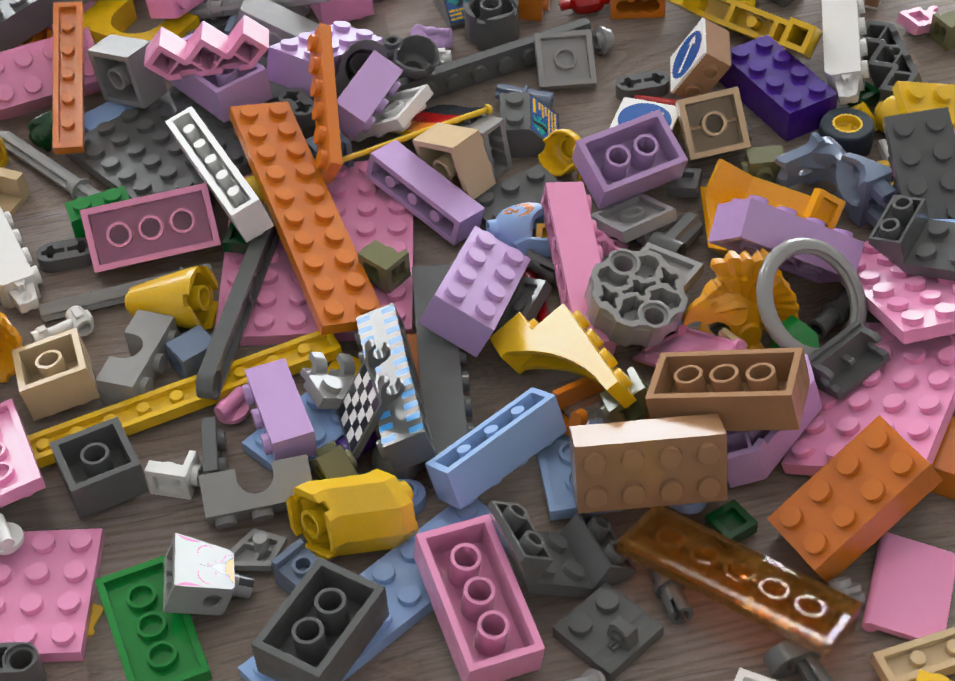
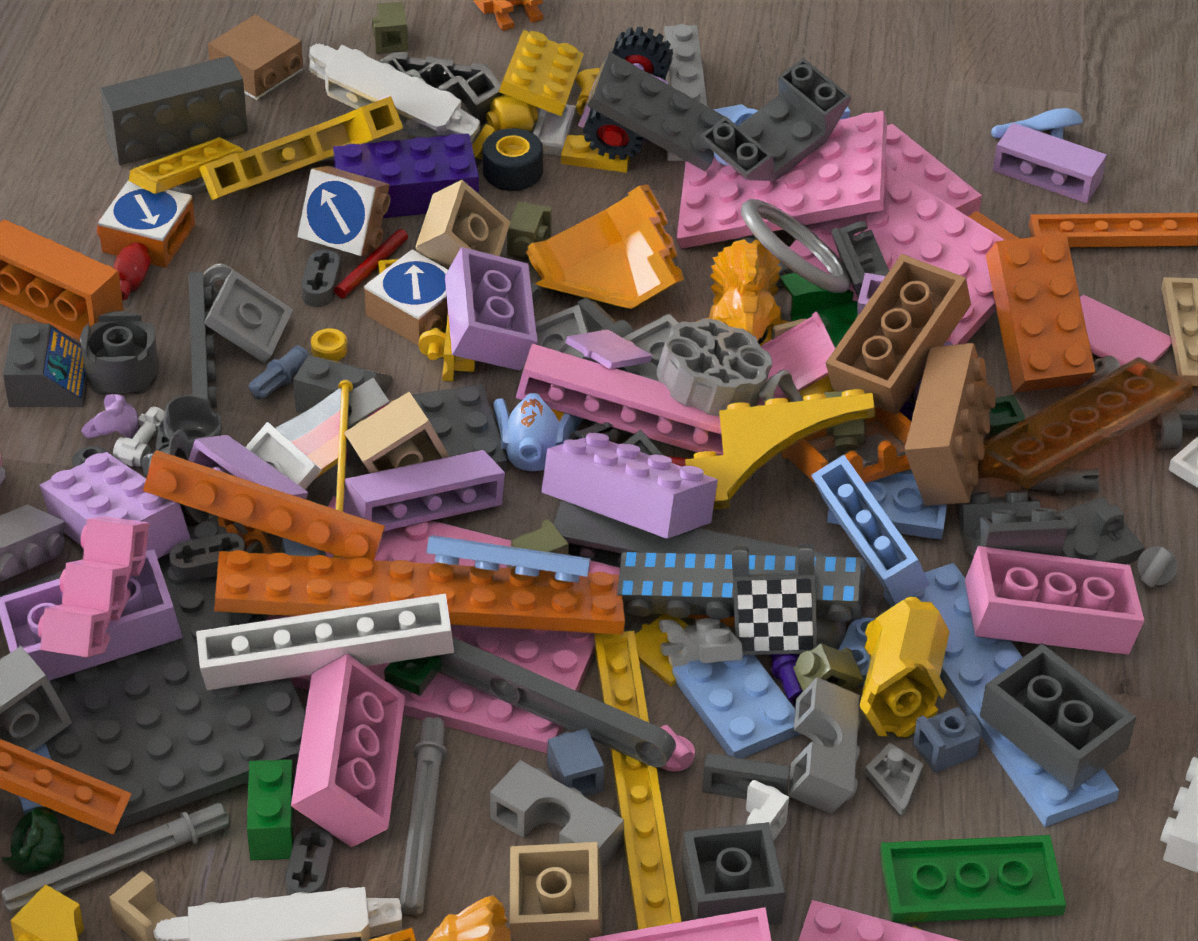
camera: 75 degrees left, 0 degrees up
(75, 316) = (452, 870): white bar -> none
(181, 294) = (480, 756): yellow cone -> none
(201, 578) = (933, 815): light grey torso -> none
(279, 411) = (731, 692): lavender brick -> none
(344, 237) = (489, 557): none -> light blue plate
(558, 152) = (415, 367): yellow hair -> none
(574, 112) = (329, 344): none -> yellow tile
(621, 230) = (608, 349): none -> lavender piece
(628, 342) = (785, 382): none -> light grey piece
(756, 225) = (697, 234): lavender brick -> none
(858, 180) = (612, 166): sand blue hips -> none
(917, 20) = (360, 40): bright pink plate -> none

